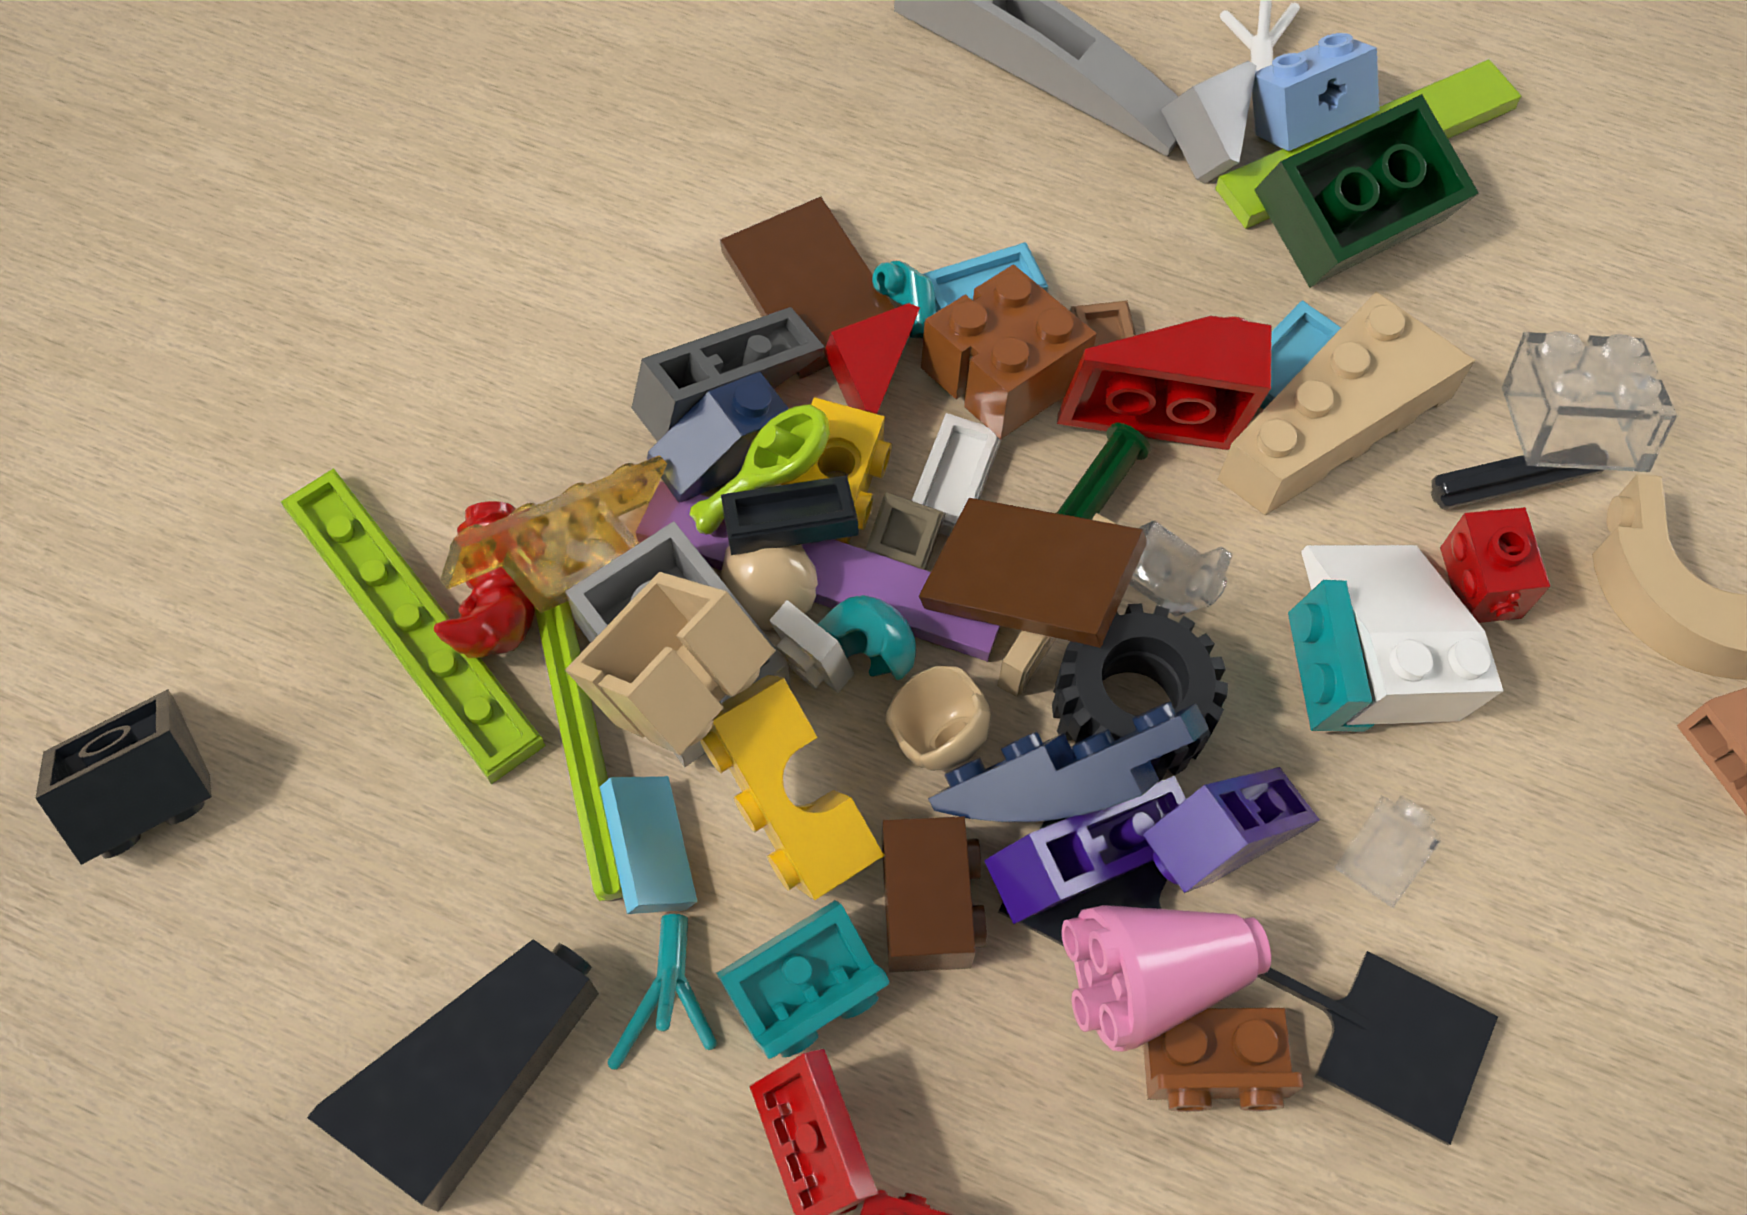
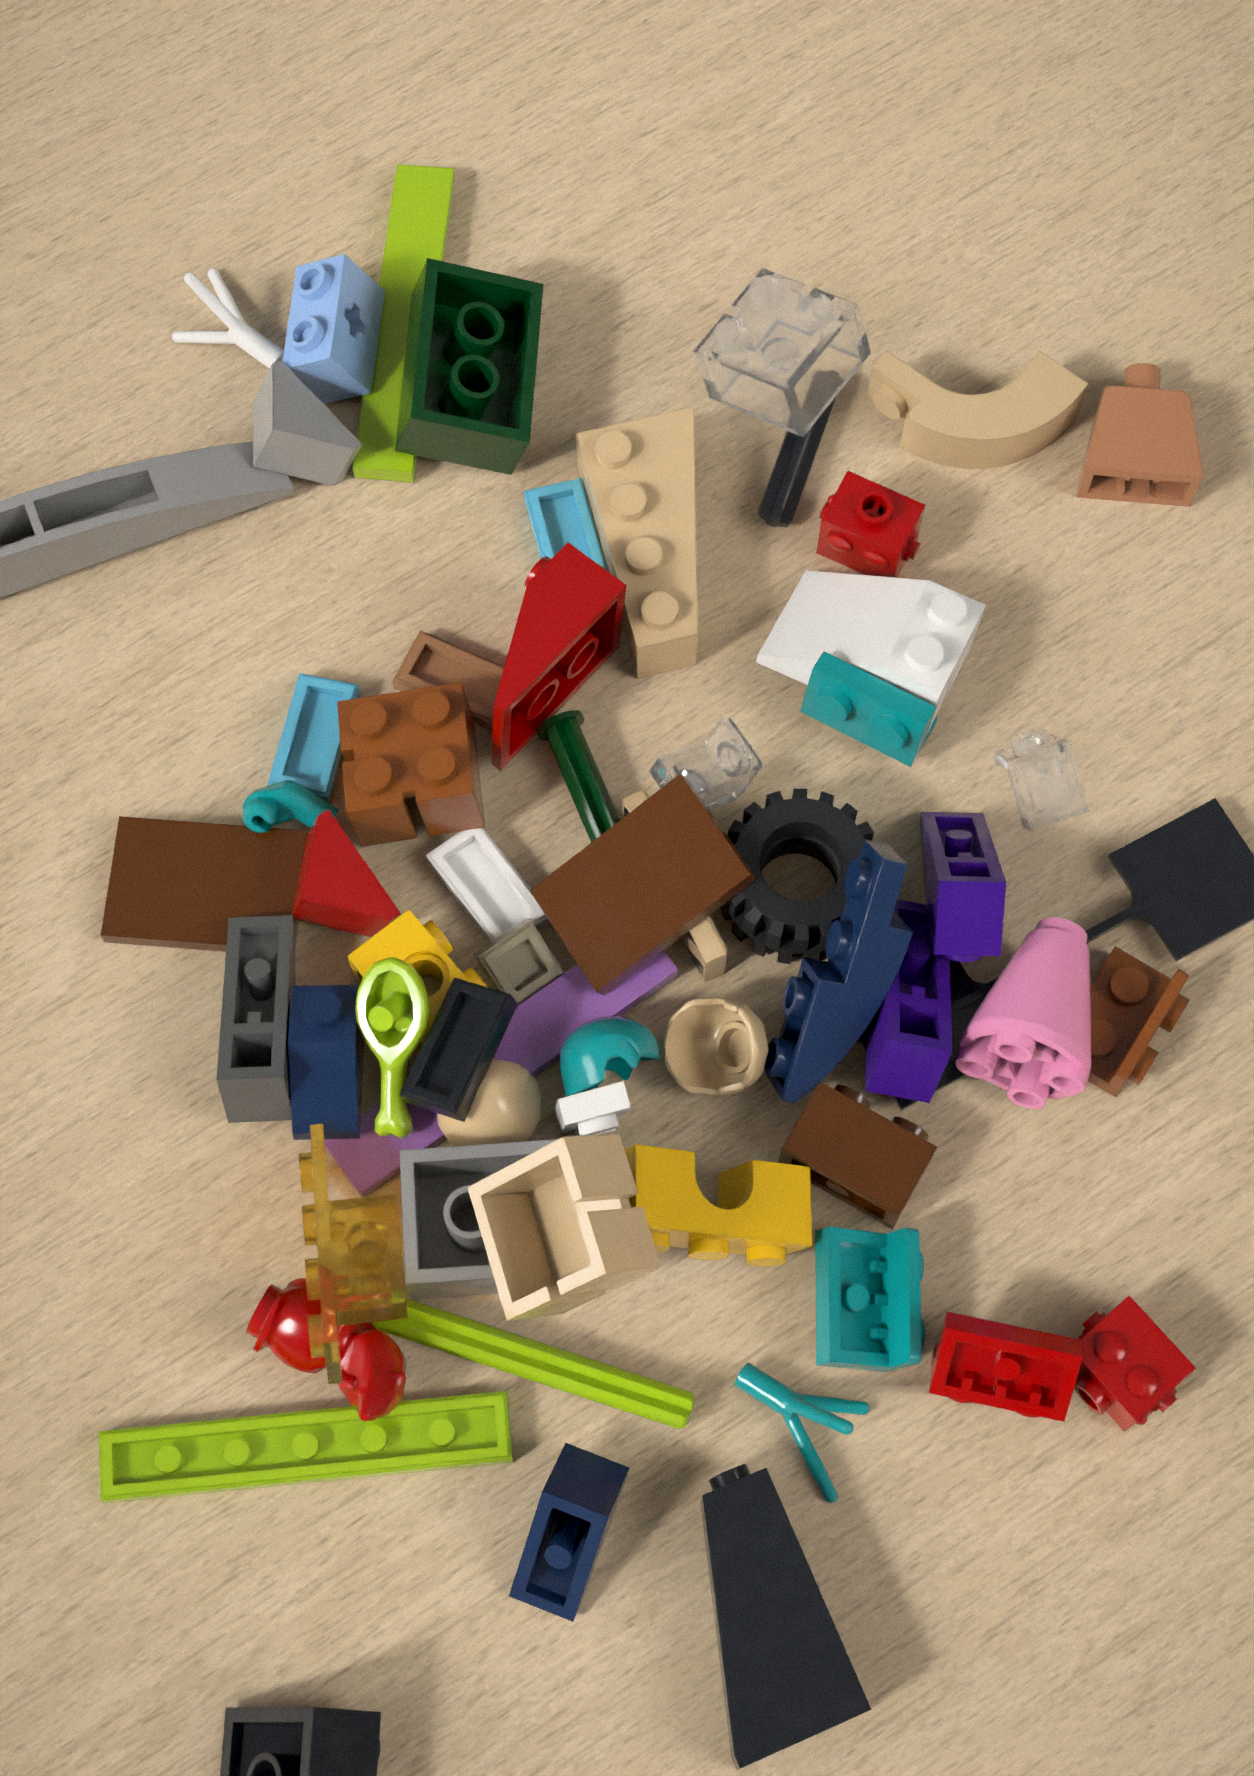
camera: 55 degrees left, 5 degrees up
(450, 853) = (568, 1531): none -> dark blue slope
(648, 844) = (666, 1355): medium azure tile -> none

